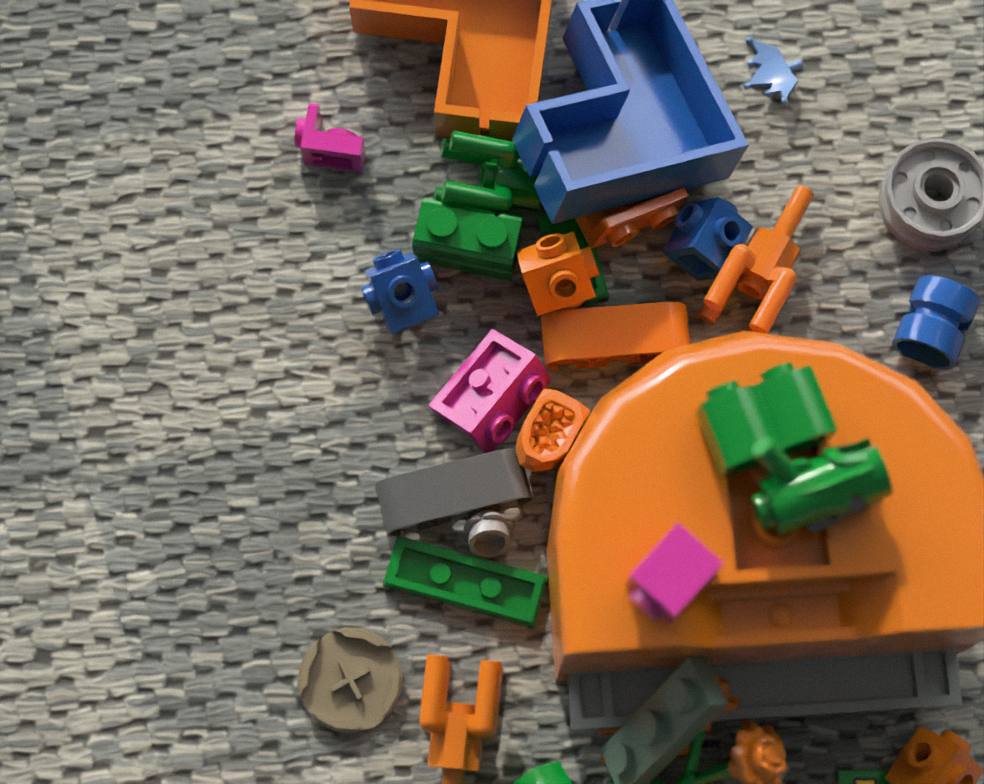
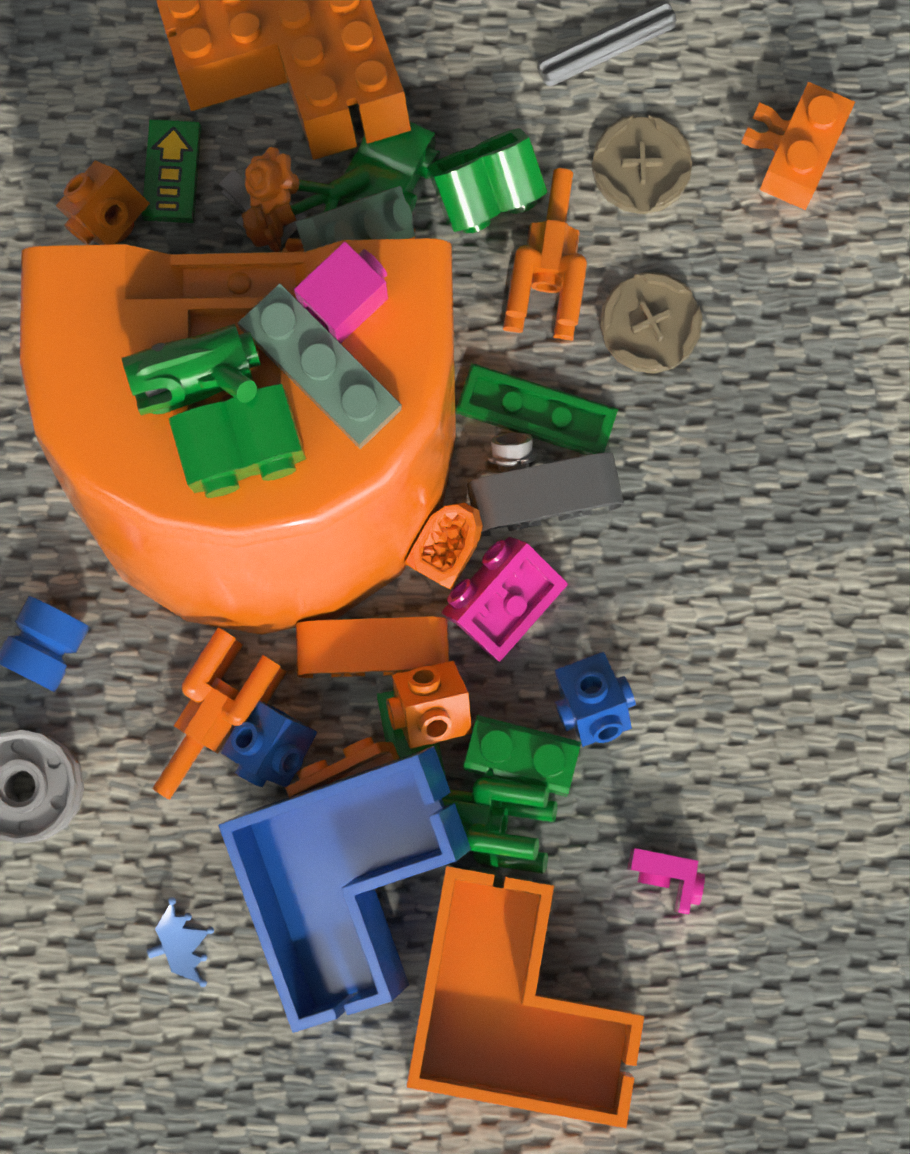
camera: 175 degrees left, 5 degrees up
(681, 494) = (320, 366): none -> sand green plate

